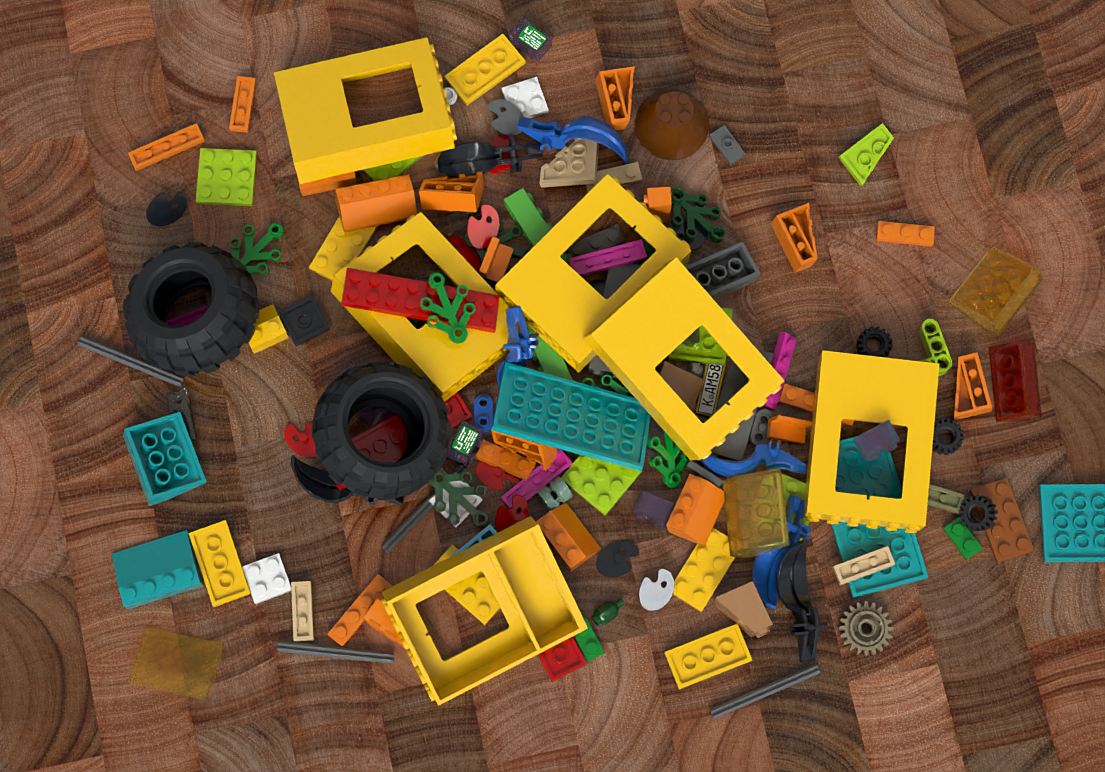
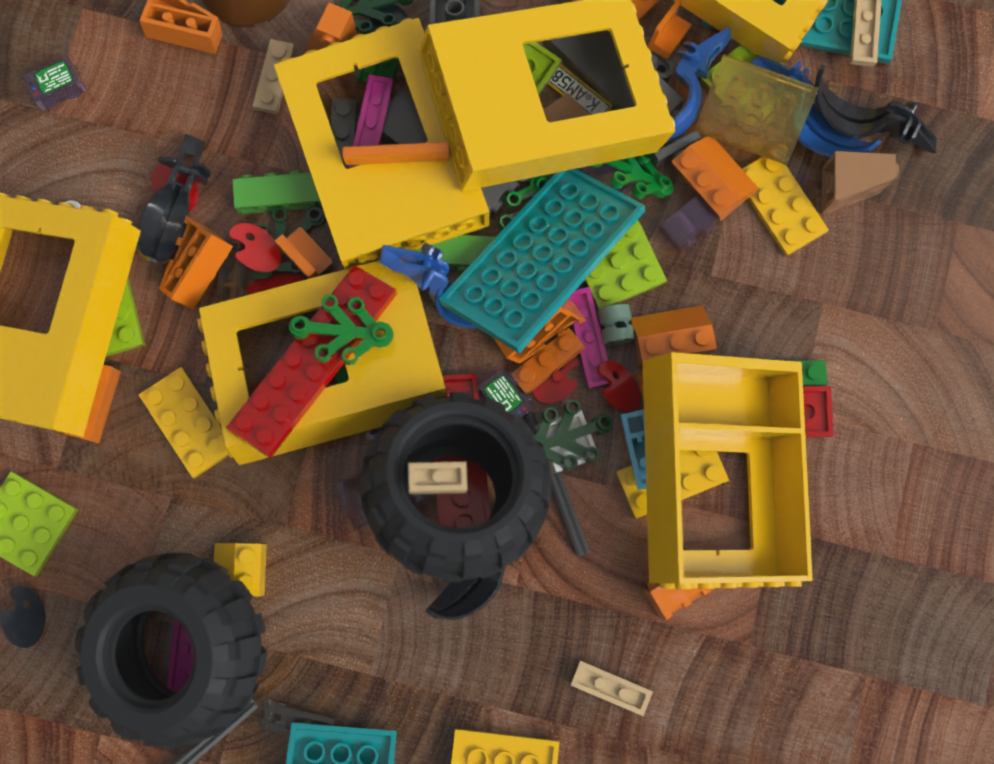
camera: 65 degrees left, 5 degrees up
(252, 253) = (138, 537): green plant -> none
(267, 578) = (549, 712): white plate -> none
(304, 321) = (256, 515): black plate -> none
(305, 445) = (407, 583): red piece -> none
(336, 652) = (677, 672): dark grey axle -> none
(354, 616) = (642, 618): orange plate -> none
(375, 203) = (157, 358): orange slope -> none
(375, 409) = (437, 478): none -> tan plate
(483, 412) = (477, 359): blue plate -> none
(485, 69) = (62, 153): yellow plate -> none
(507, 120) = (141, 156): dark grey piece -> none
(527, 97) = (125, 127): white plate -> none
(572, 165) = (233, 109): tan plate -> none
(584, 128) = (197, 72): blue piece -> none
(585, 282) = (396, 153): none -> orange tile
(607, 612) = (781, 334): dark green plant -> none
(612, 563) = (725, 301): black piece -> none
(653, 594) = (786, 272): piece -> none
(695, 368) = (548, 97): light grey plate -> none
(708, 656) = (883, 249): yellow plate -> none
(764, 691) = (949, 208): dark grey axle -> none
(878, 628) = (942, 55): dark tan gear -> none

